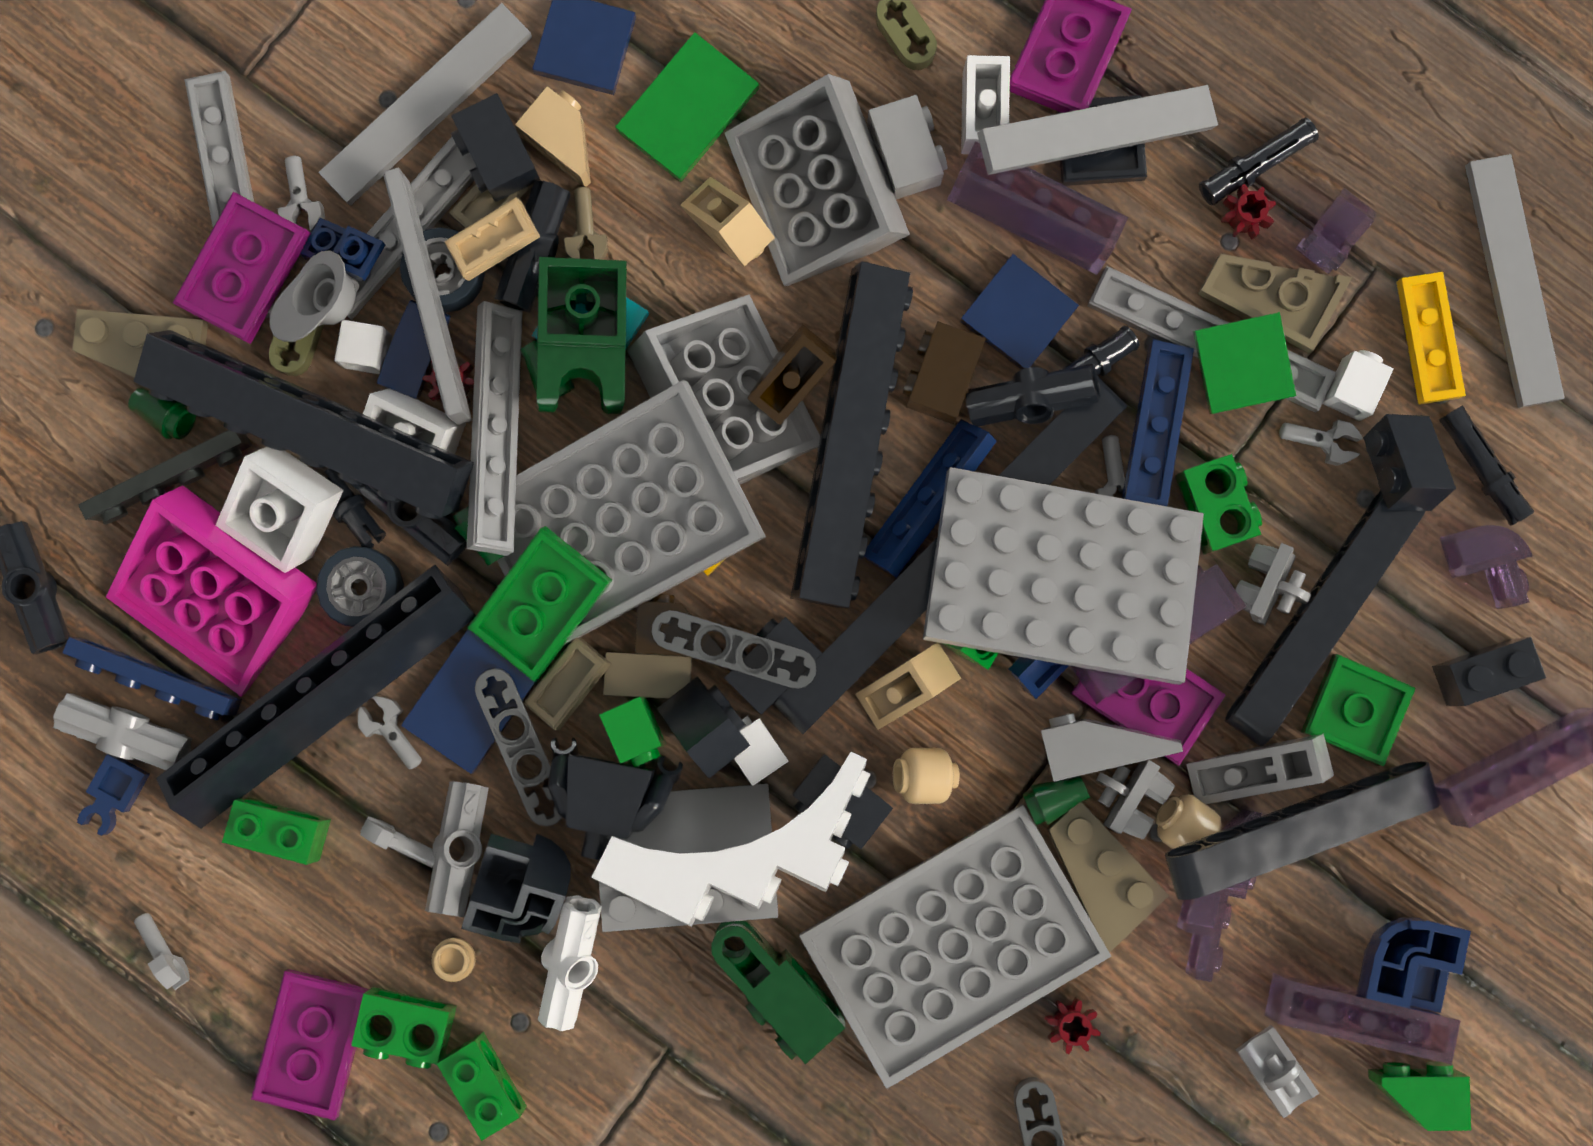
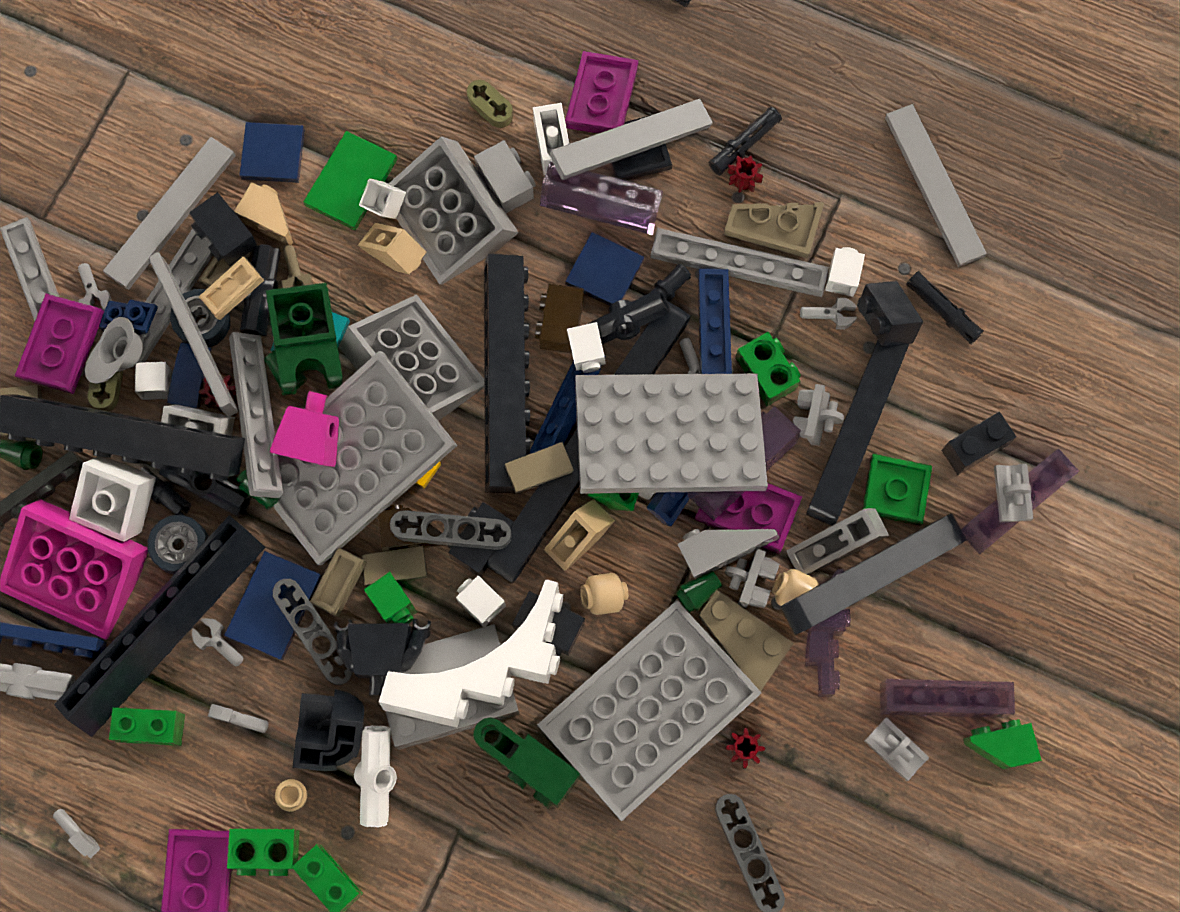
camera: 10 degrees left, 10 degrees down
(114, 787) = (24, 721): dark blue plate -> none
(452, 878) = (279, 732): light grey piece -> none
(539, 603) = (308, 527): green tile -> none
(562, 476) = (308, 433): none -> dark pink torso
(705, 725) = (440, 587): black brick -> none
(716, 144) = (374, 198): none -> white piece
(792, 374) = (455, 340): dark brown slope -> none
(872, 586) = (539, 467): none -> dark tan tile
(973, 429) = (586, 347): none -> white brick
(1244, 363) = (764, 271): green tile -> none
(1336, 231) = (806, 174): clear purple brick -> none
(1411, 962) = (972, 649): dark blue brick -> none
(1430, 338) = (887, 232): yellow plate -> none
(1496, 552) = (962, 362): clear purple brick -> none
(1526, 764) = (1013, 493): none -> light grey hips

